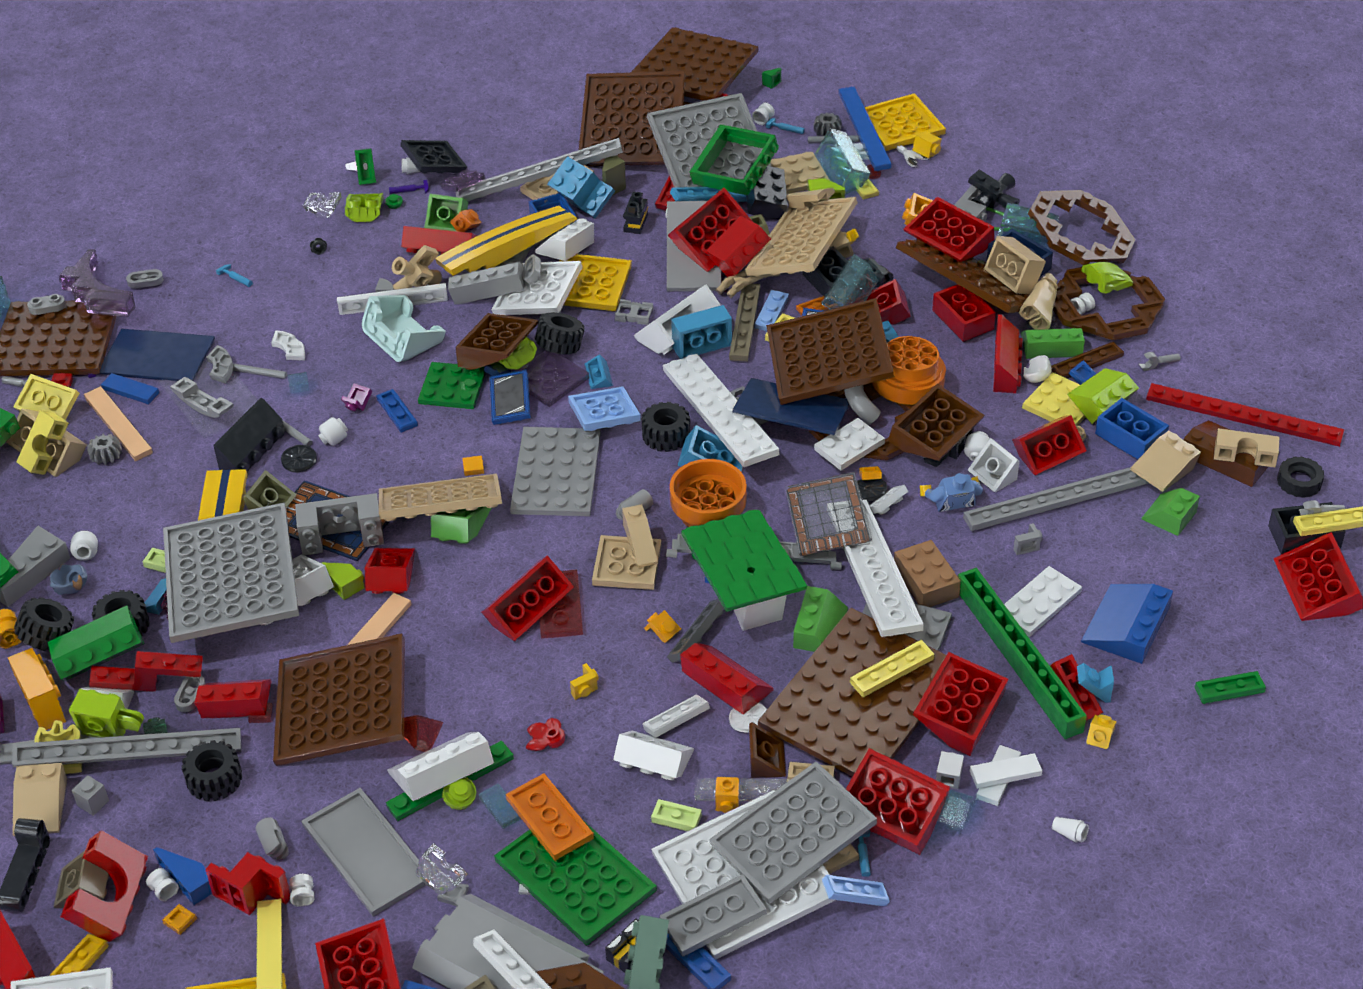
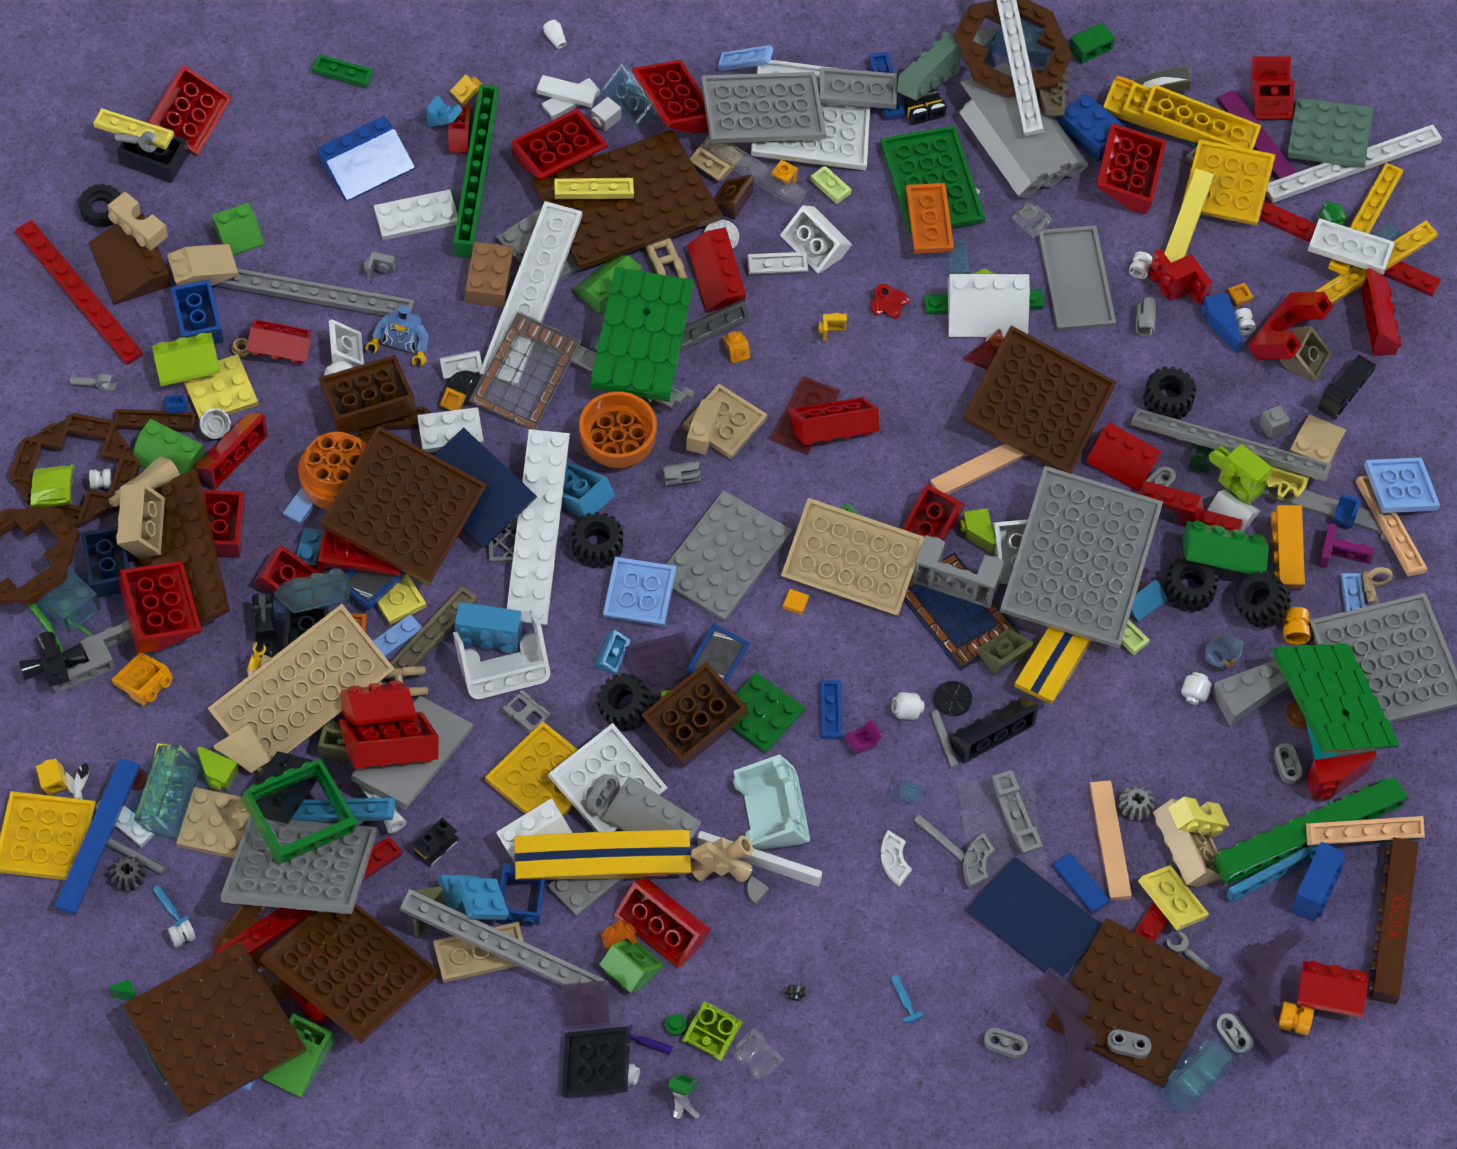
camera: 155 degrees left, 15 degrees up
(777, 671) = (672, 257): none -> tan piece

